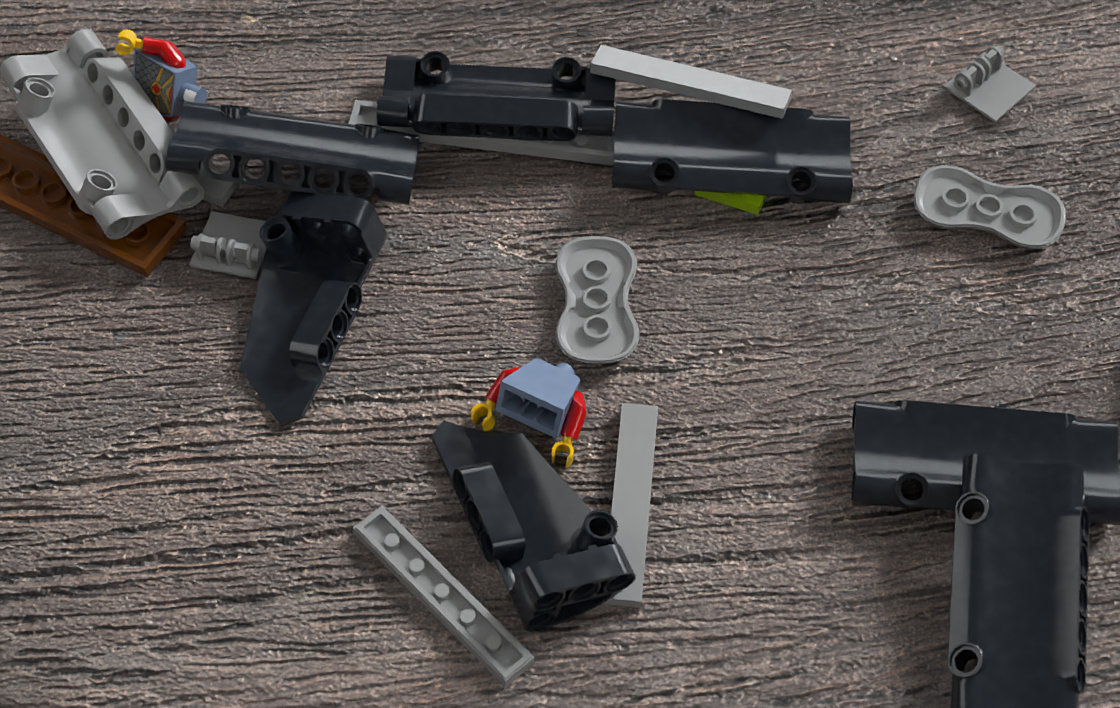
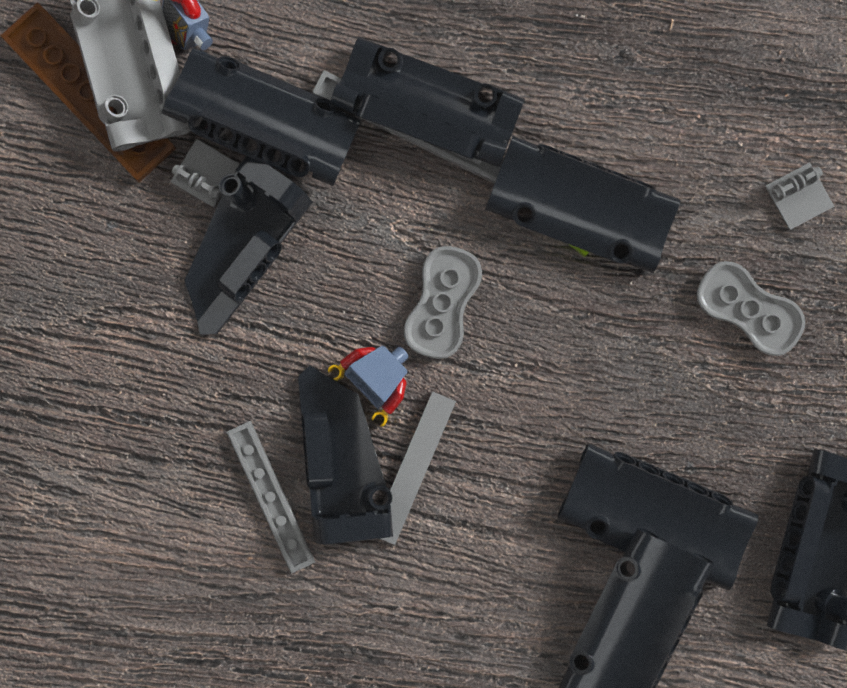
camera: 15 degrees right, 30 degrees up
(691, 81) = (572, 139): tile -> none

